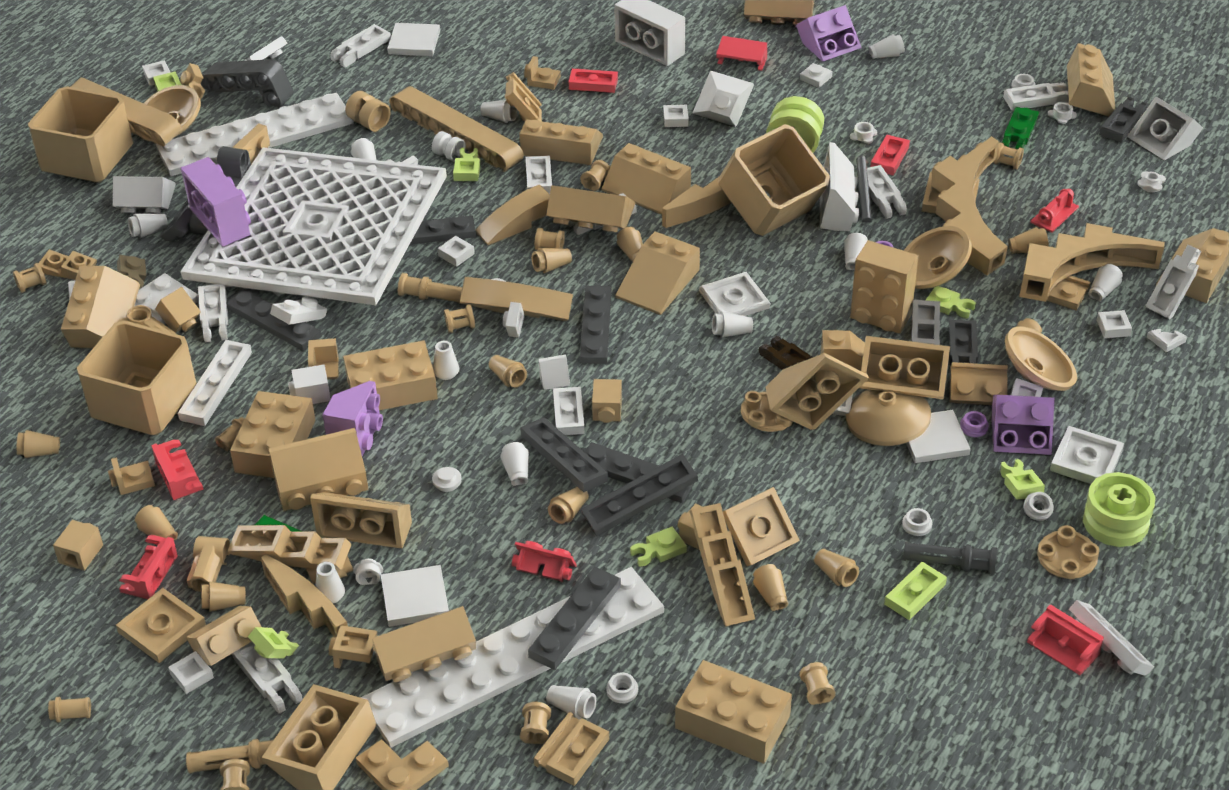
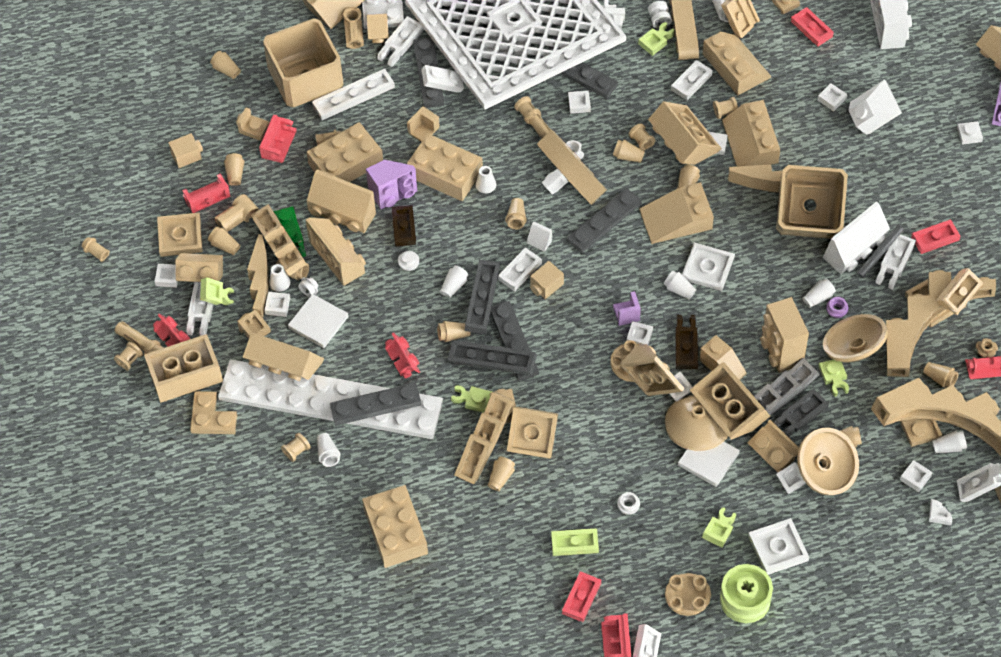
camera: 45 degrees right, 15 degrees up
(250, 720) = (167, 327): none -> coral hinge
(310, 383) = (398, 137): white brick -> none
(354, 609) = (277, 304): none -> white plate
(406, 453) = (403, 225): none -> dark brown plate
(468, 319) = (528, 154): tan bush -> none
(515, 215) = (638, 101): tan slope -> none
(571, 748) = (298, 476): tan plate -> none
(622, 680) = (360, 458): white plate -> none
(713, 372) = (627, 311): none -> lavender panel
(742, 50) = (937, 77): coral hinge -> none
(746, 382) = (640, 333): none -> white plate
(802, 115) = (887, 169): yellowish green wheel -> none
(817, 684) = (457, 548): tan bush -> none
(837, 567) = (549, 492): tan cone -> none
(863, 132) = (945, 202): white plate -> none
(913, 550) = (626, 546): dark grey pin -> none
(974, 424) = (740, 464): lavender plate -> none
(975, 162) = (959, 291): none -> tan slope
(984, 631) = (581, 596): none -> coral plate
(1022, 424) = (766, 493): lavender slope -> none
(1034, 202) = (983, 352): none -> tan plate
(1043, 501) = (709, 545): white plate -> none

